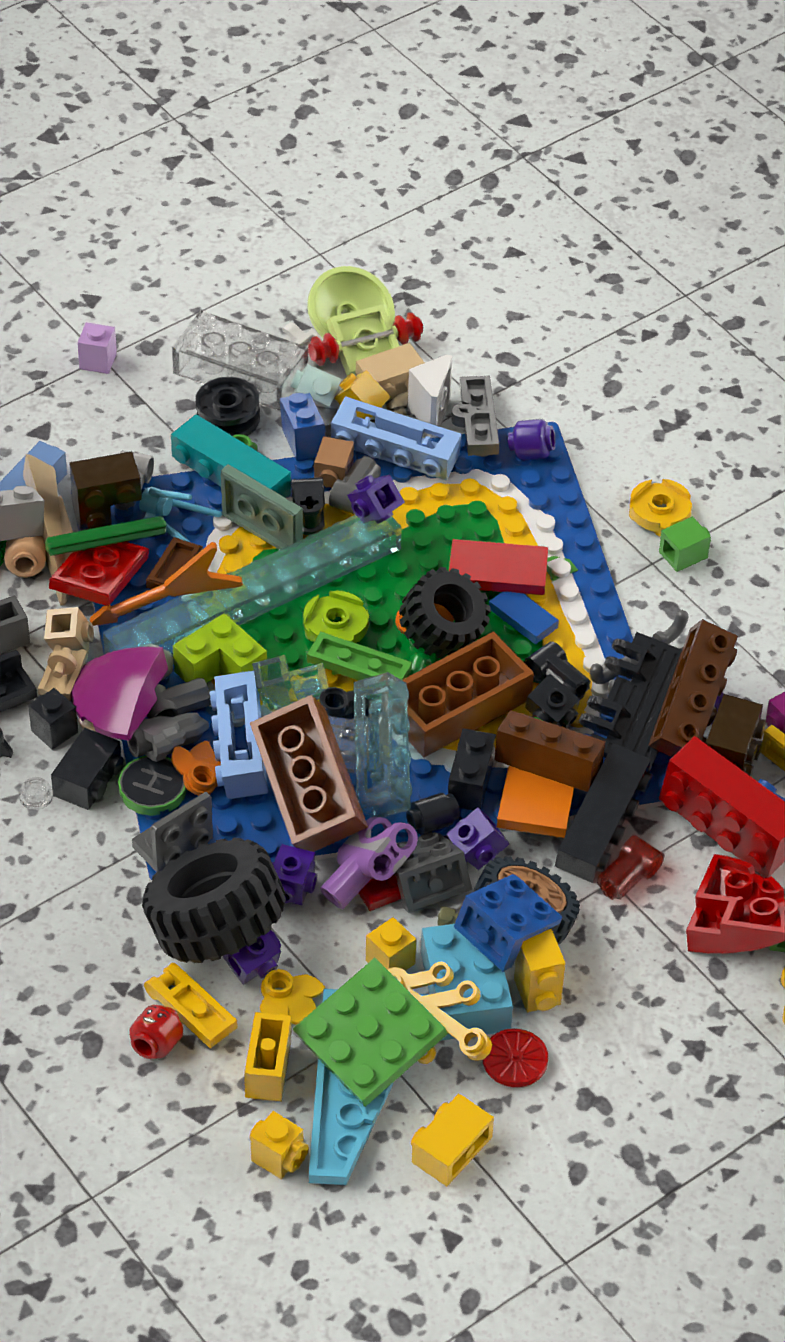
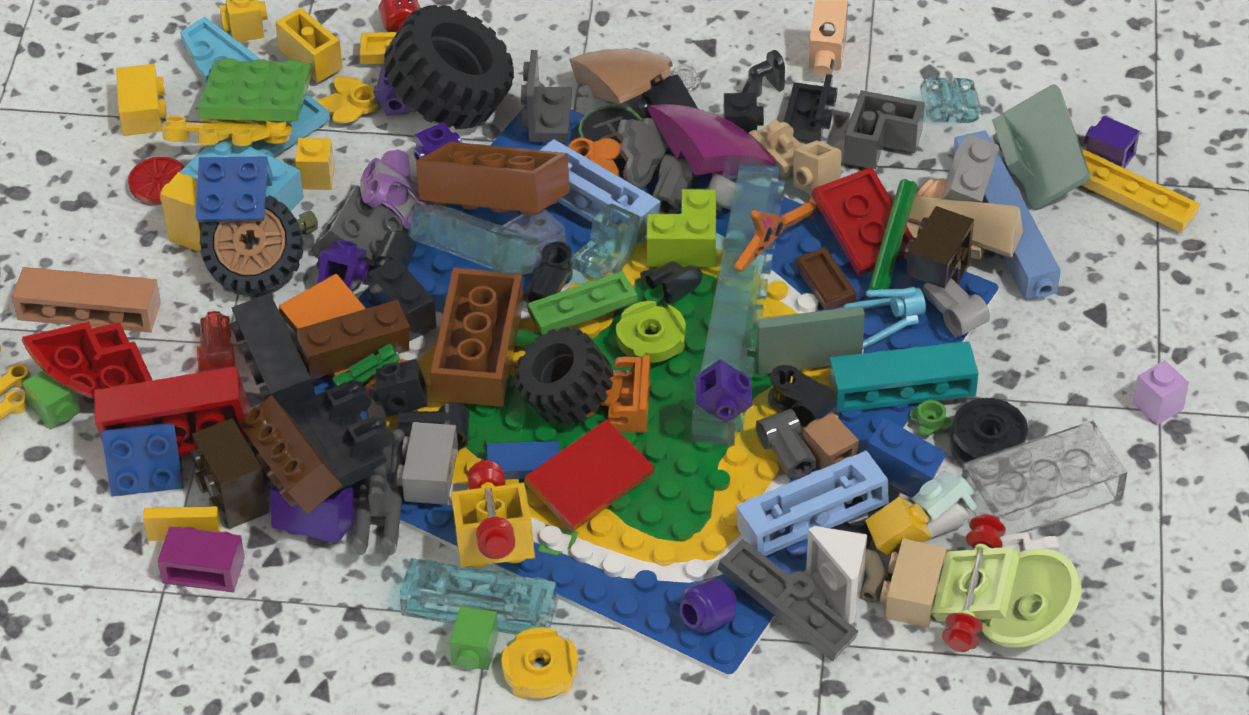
camera: 135 degrees right, 0 degrees up
(83, 805) = (620, 73): none -> medium nougat brick
(271, 633) = (674, 279): none -> black piece
(391, 589) = (631, 408): none -> orange hinge
(592, 639) = (428, 463): none -> light grey brick
(608, 561) = (492, 519): none -> yellow brick
(654, 562) = (477, 589): none -> clear light blue brick
(685, 985) = (84, 297): none -> nougat brick

